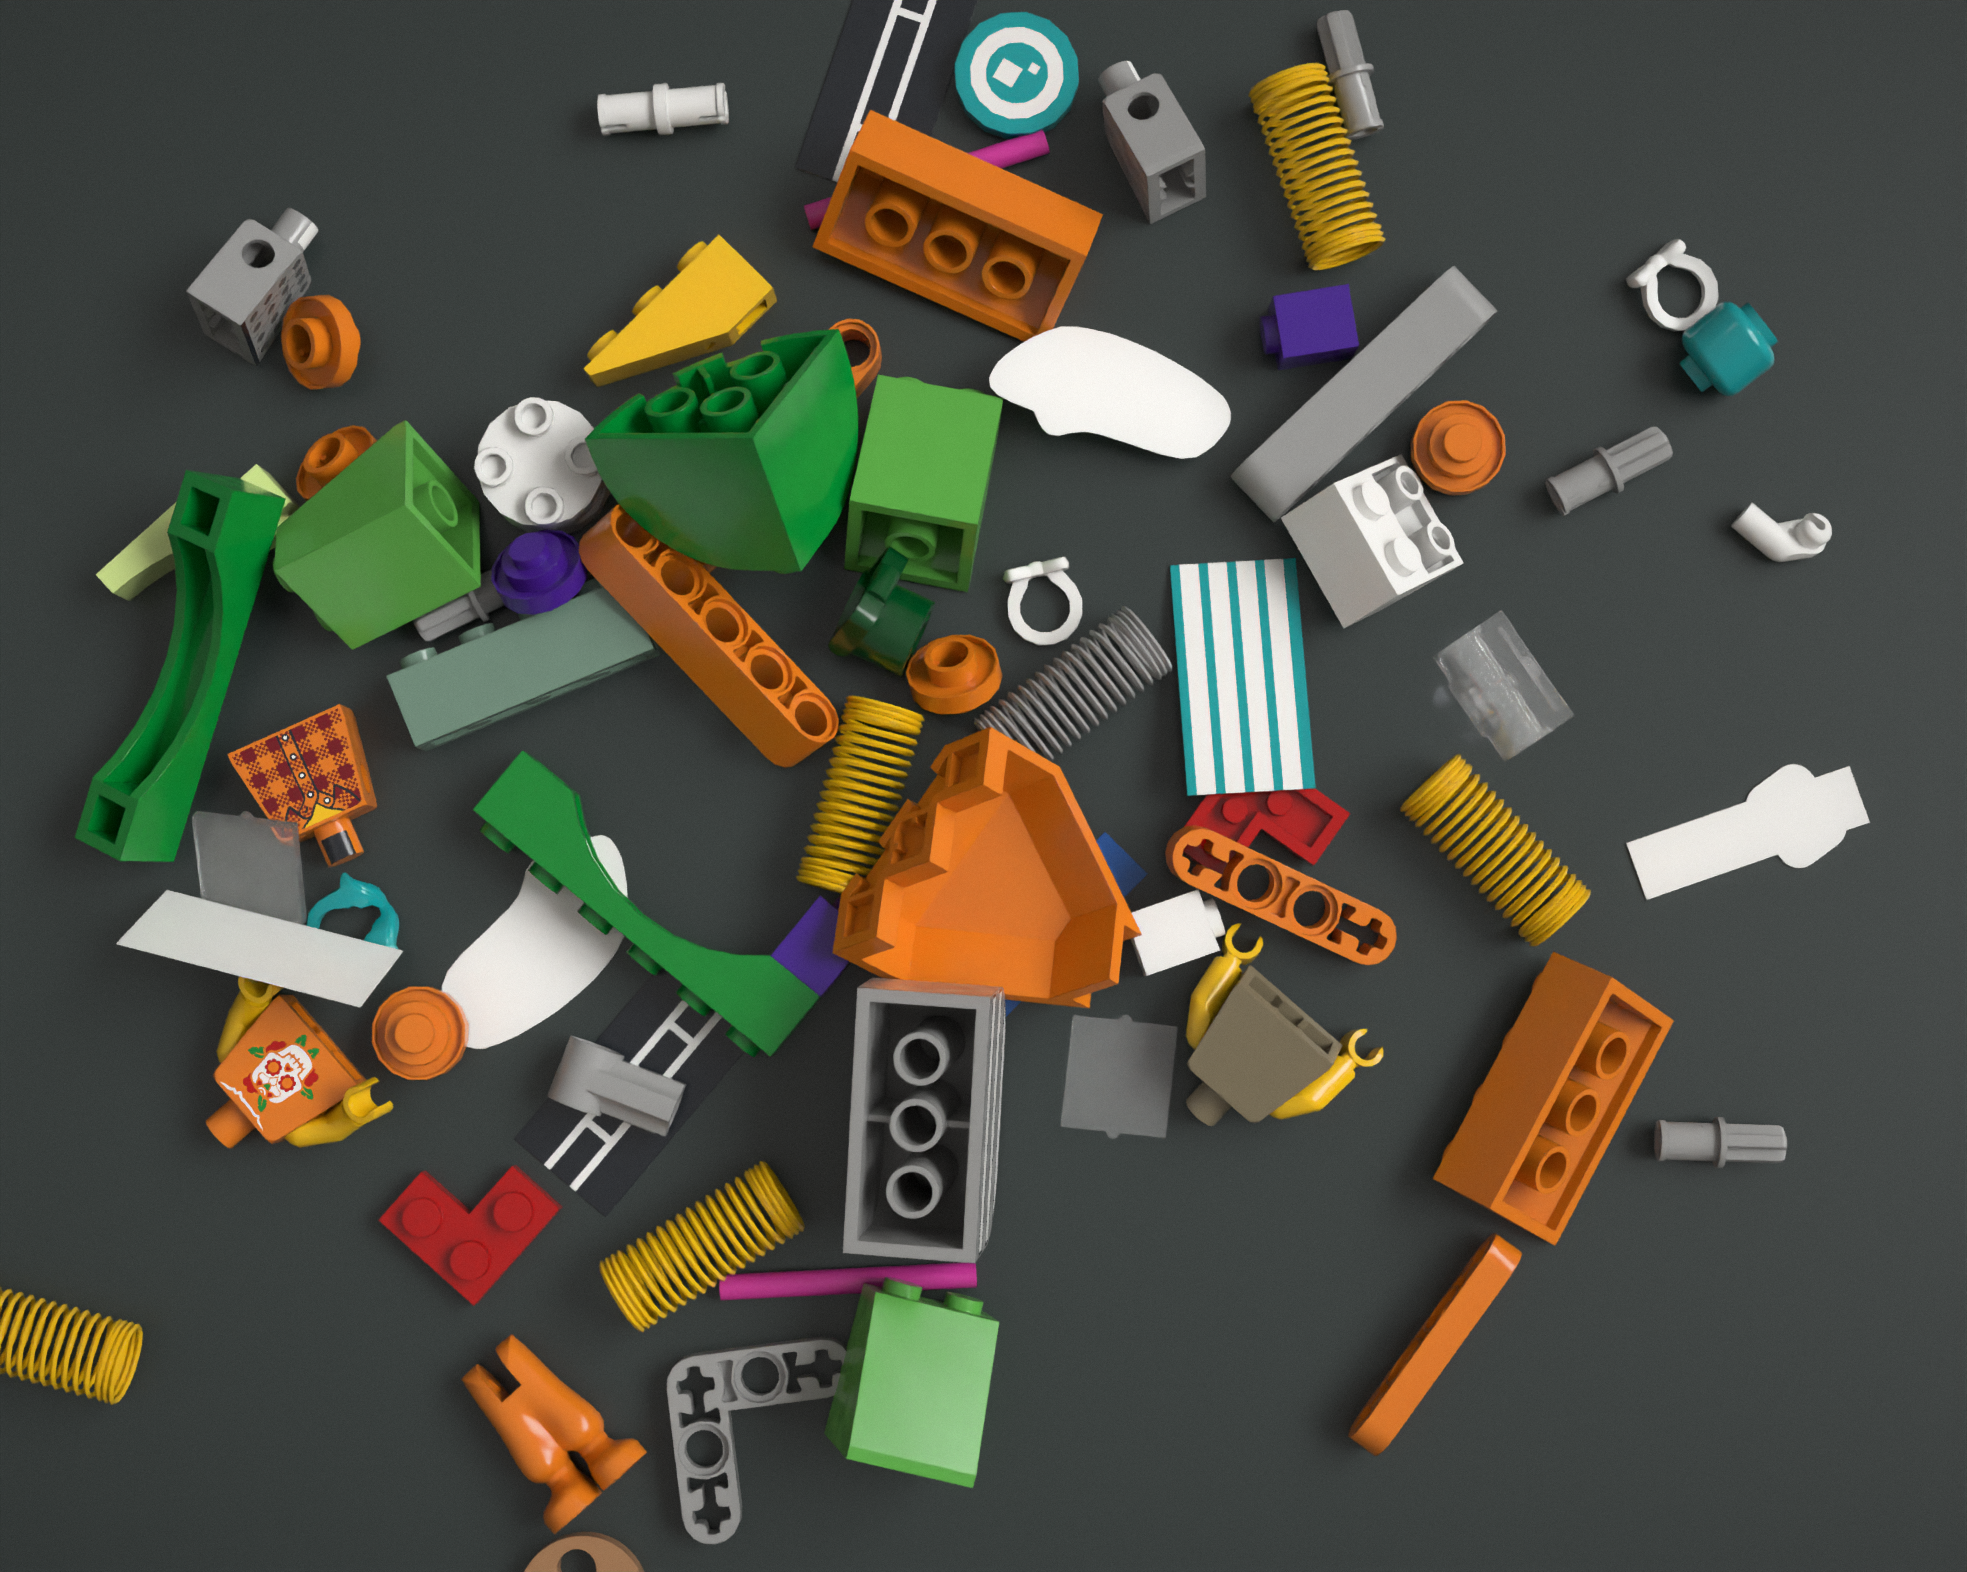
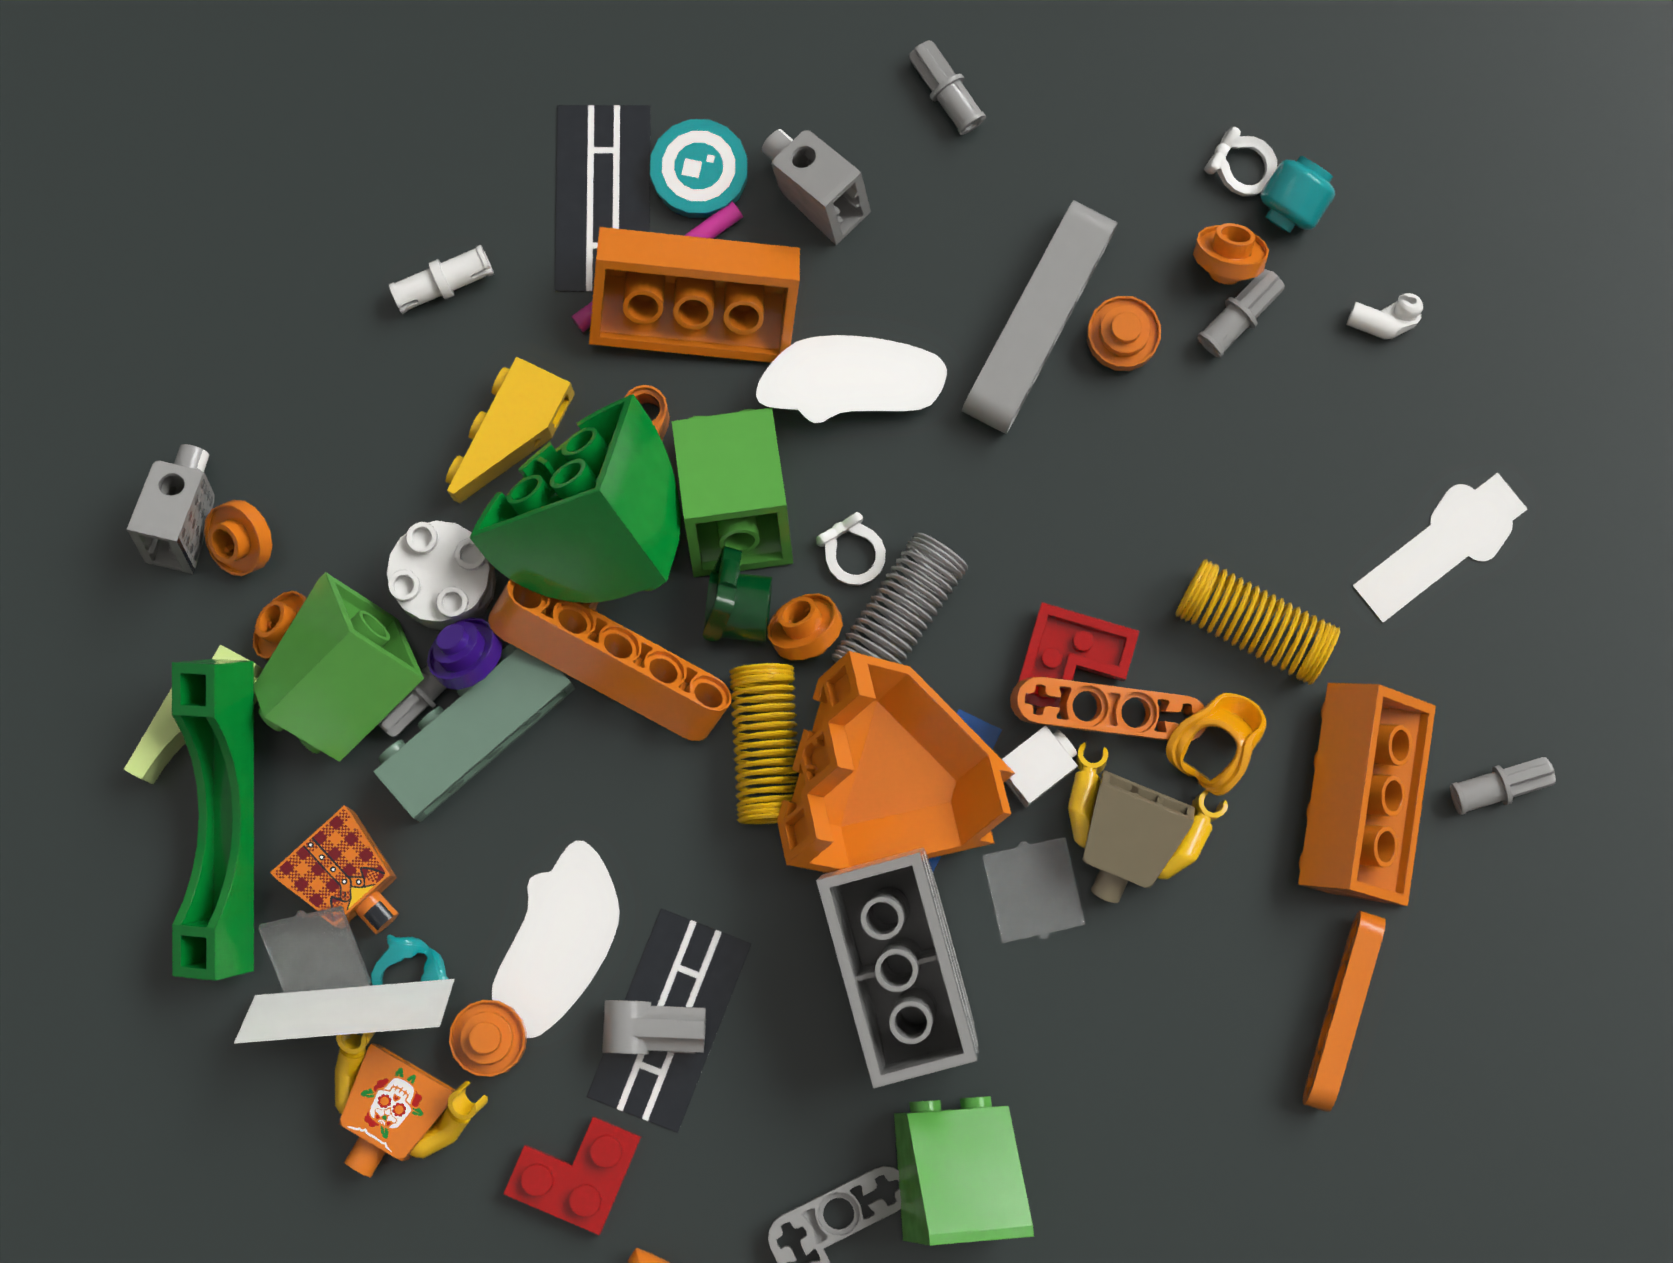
camera: 20 degrees left, 5 degrees down
(547, 822) = (529, 841): green arch -> none
(625, 1278) = (805, 1076): yellow piece -> none
(810, 948) = (767, 869): dark purple brick -> none
(844, 1280) = (877, 1118): dark pink bar -> none
(1242, 677) = (1022, 557): sticker -> none
(1272, 99) = (910, 110): yellow piece -> none
(1310, 327) = (983, 280): dark purple brick -> none
(1372, 539) = (1084, 422): white slope -> none
(1429, 954) = (1236, 716): none -> light orange piece
(1502, 686) = (1219, 497): clear piece -> none
(1621, 393) = (1230, 253): none -> orange plate

